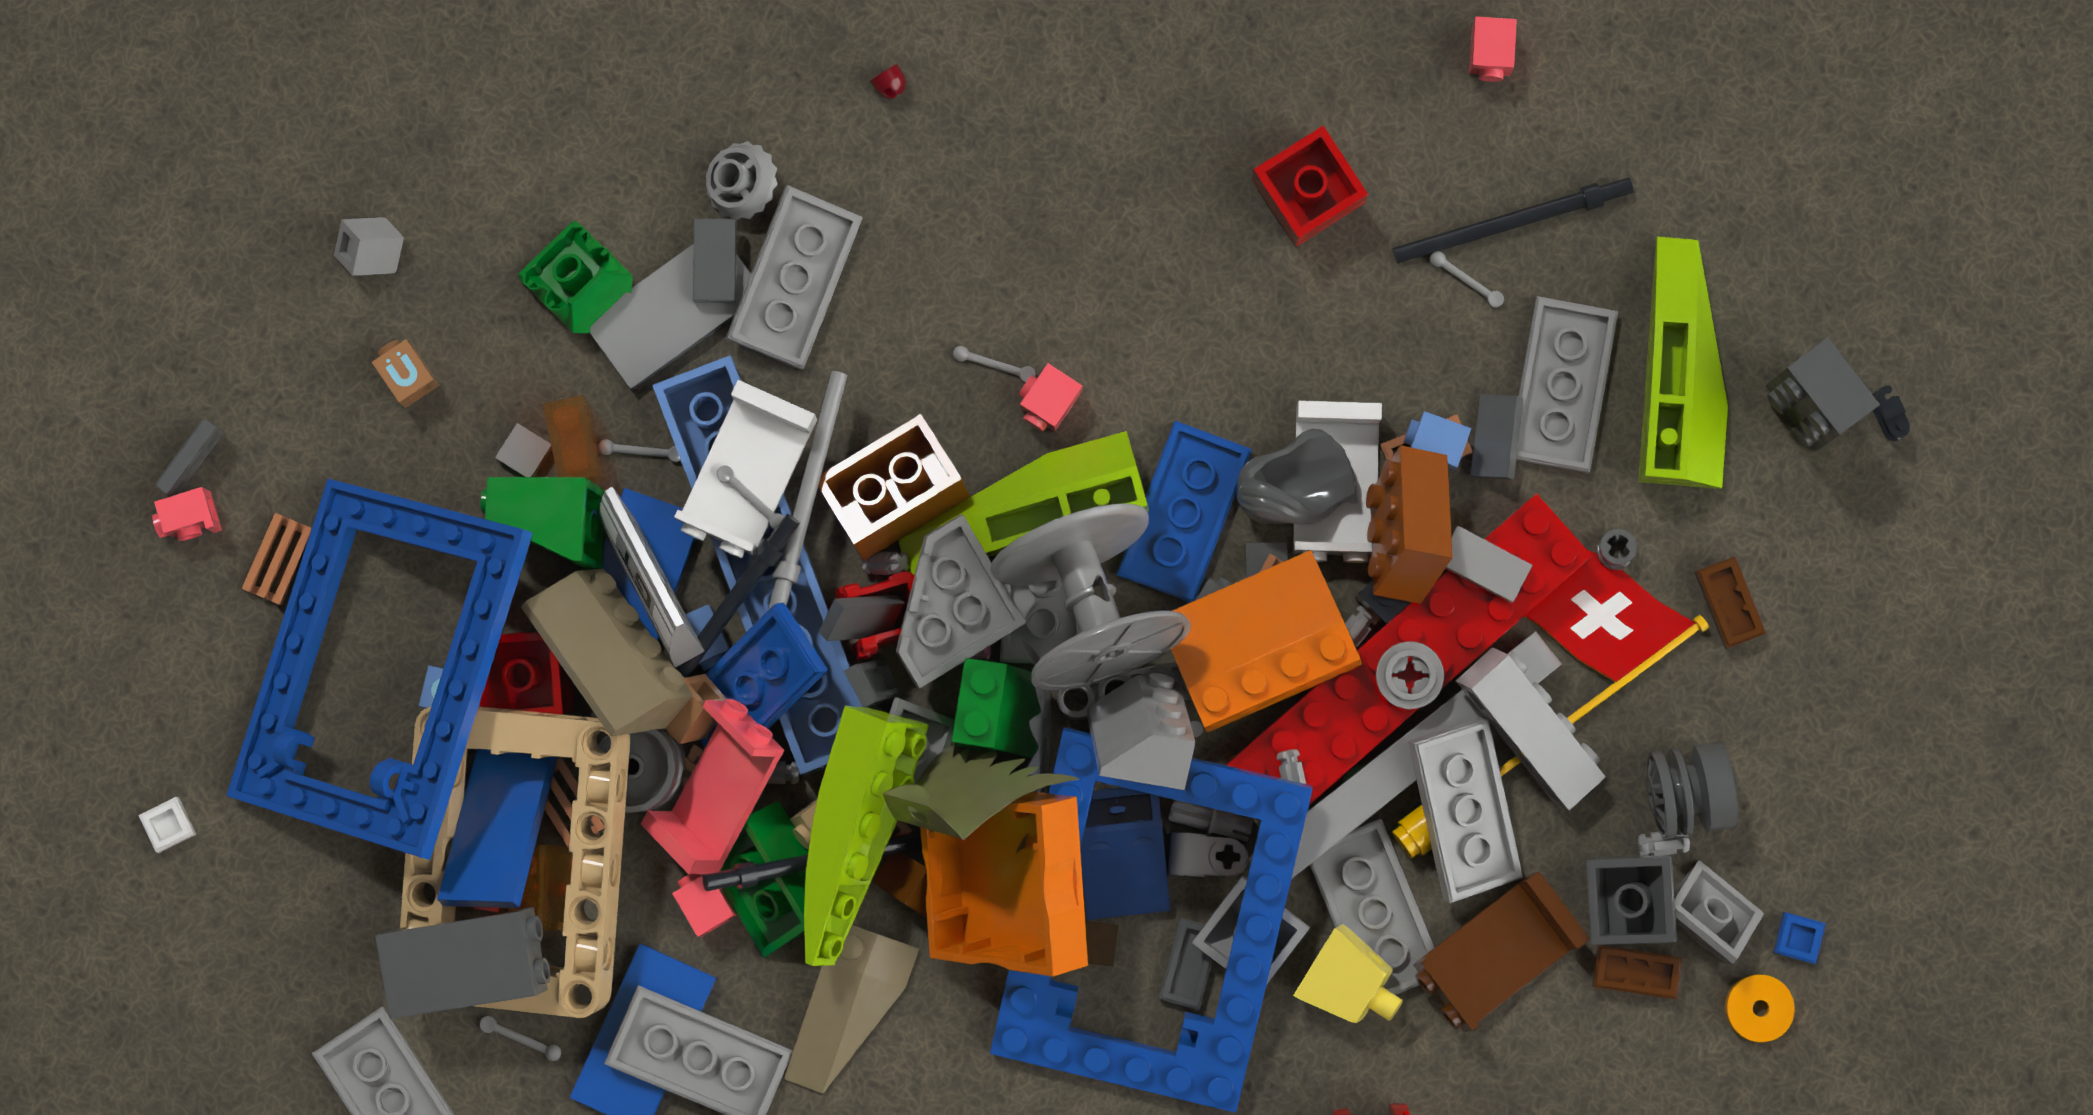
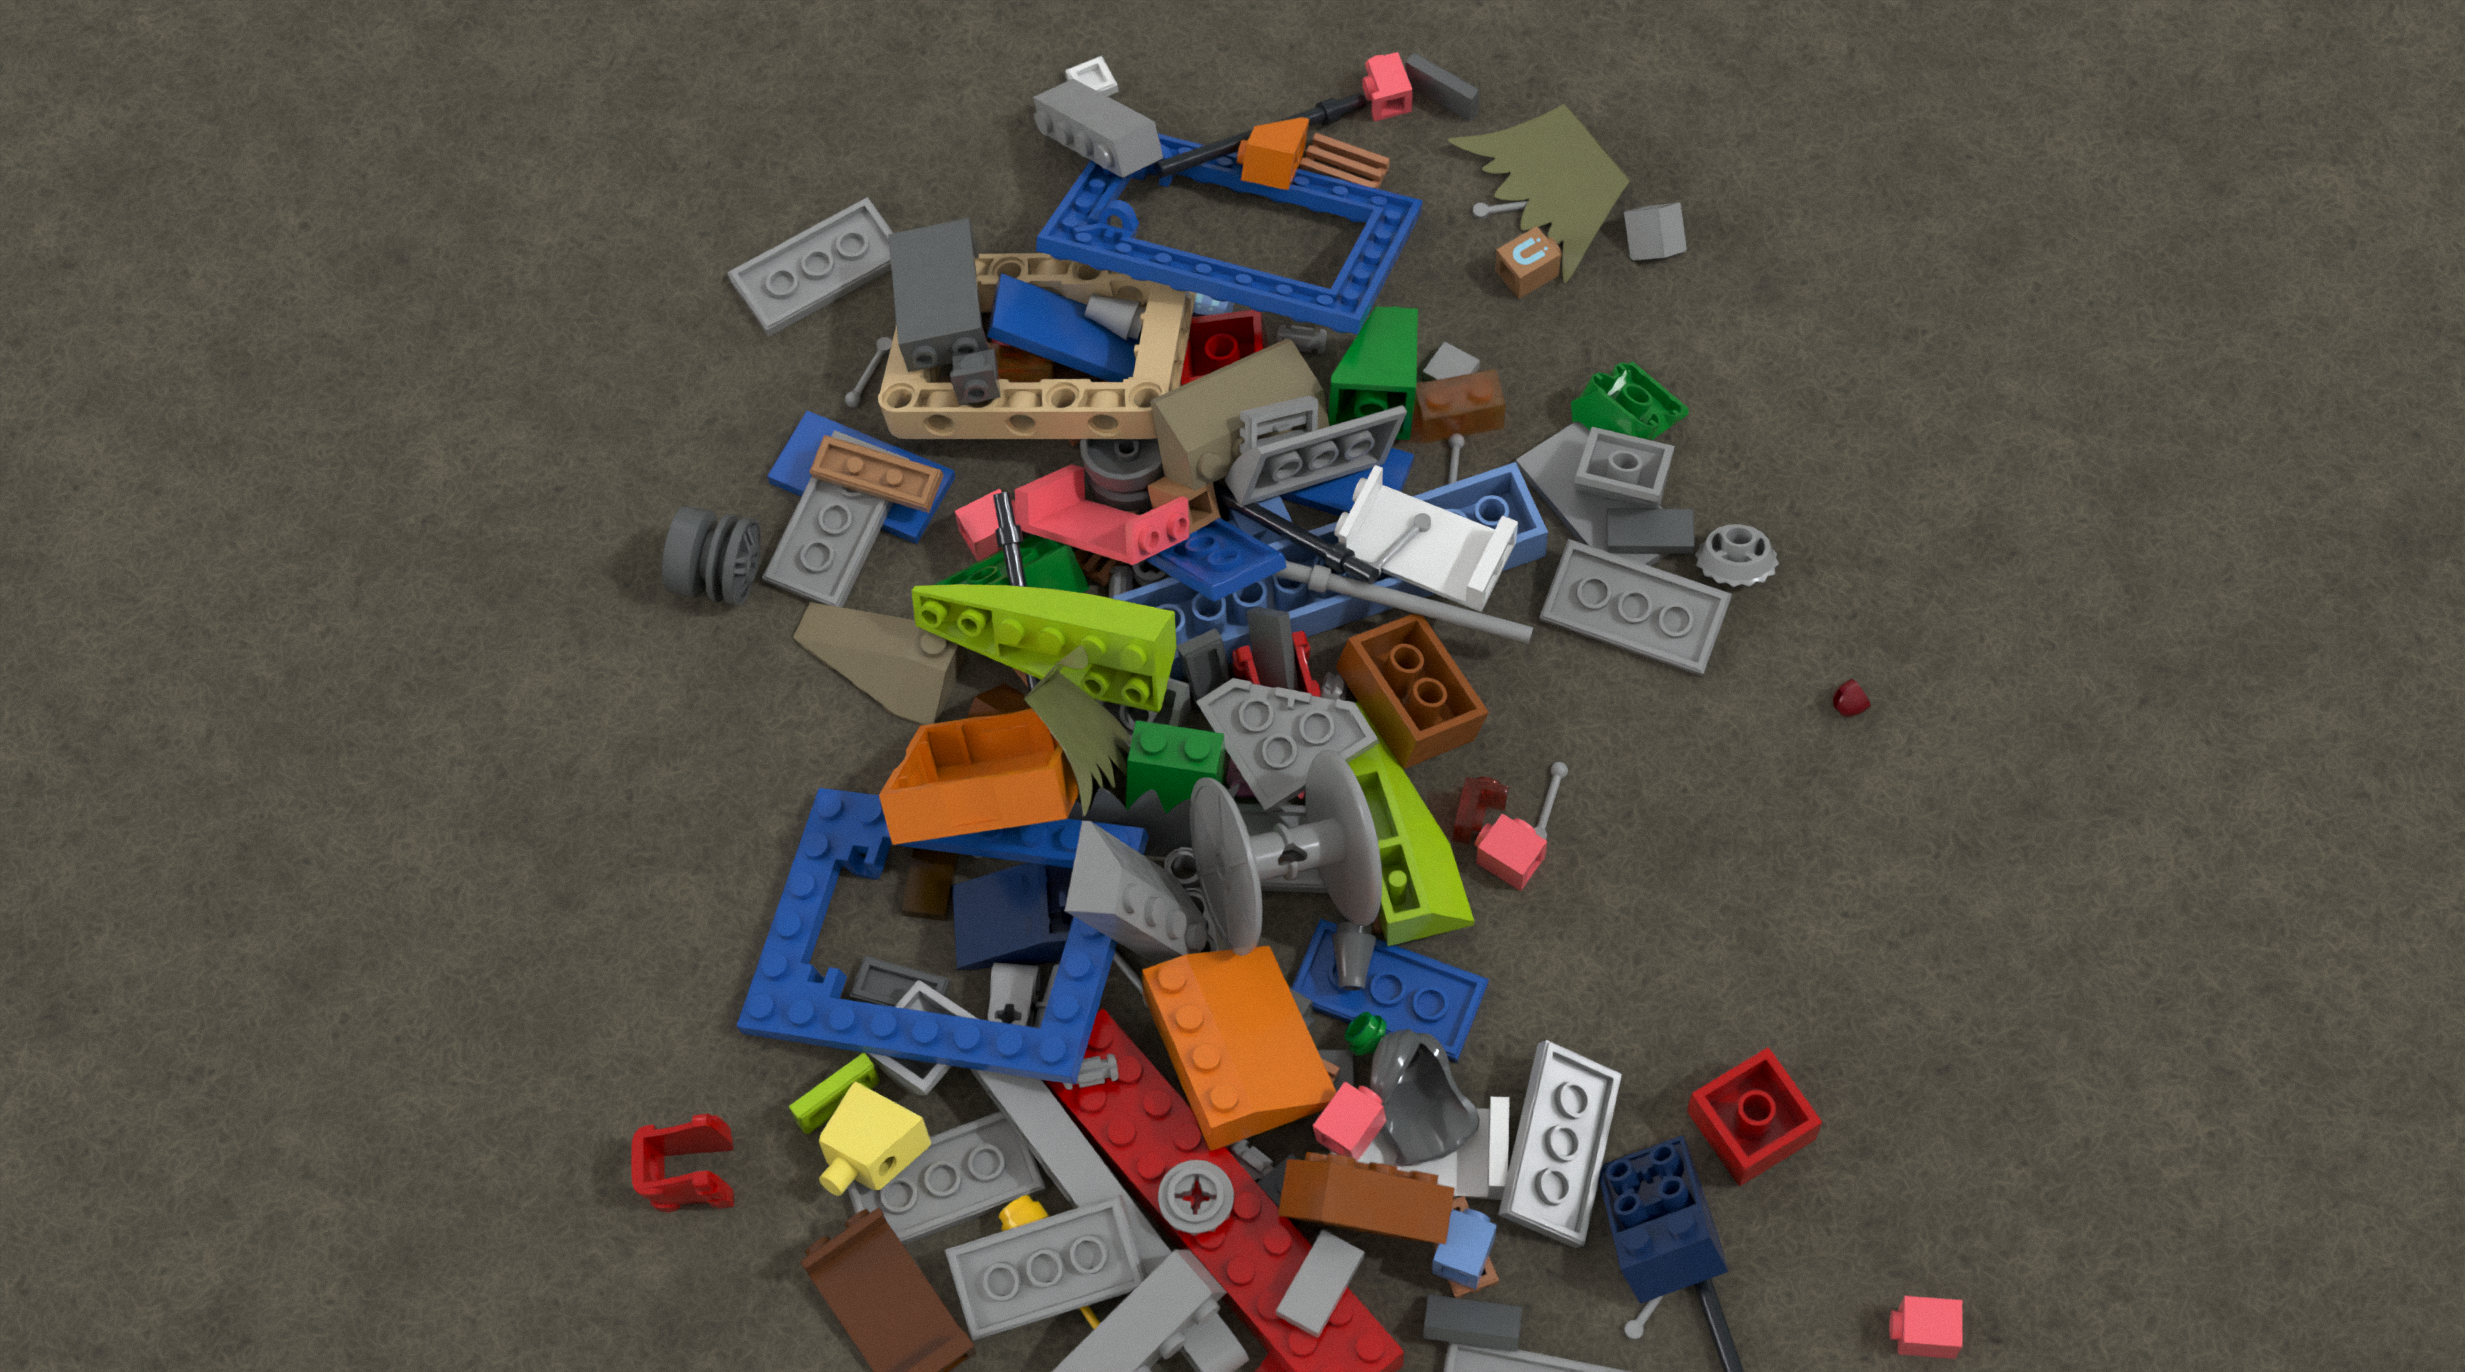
camera: 90 degrees right, 20 degrees down
(218, 579) = (1325, 113): none -> black bar
(253, 810) = (1097, 127): none -> light grey brick
(280, 627) = (1273, 152): none -> orange slope
(299, 335) = (1561, 174): none -> olive piece
(334, 420) = (1482, 211): none -> light grey hinge
(478, 778) = (1116, 315): none -> light grey cone
(567, 916) = (975, 377): none -> dark grey bracket
(626, 611) = (1274, 411): none -> light grey tile
(655, 281) = (1624, 468): none -> light grey slope
(657, 1017) = (876, 473): none -> medium nougat tile
(1011, 435) = (1474, 800): none -> clear red bracket
(1162, 542) = (1353, 953): none -> dark grey cone
(1236, 530) = (1365, 1033): none -> green plate
(1298, 1015) = (823, 1100): none -> lime tile
(1333, 539) = (1350, 1121): none -> coral brick
(1335, 357) = (1560, 1144): none -> light grey tile
(1402, 271) = (1661, 1220): none -> dark blue slope

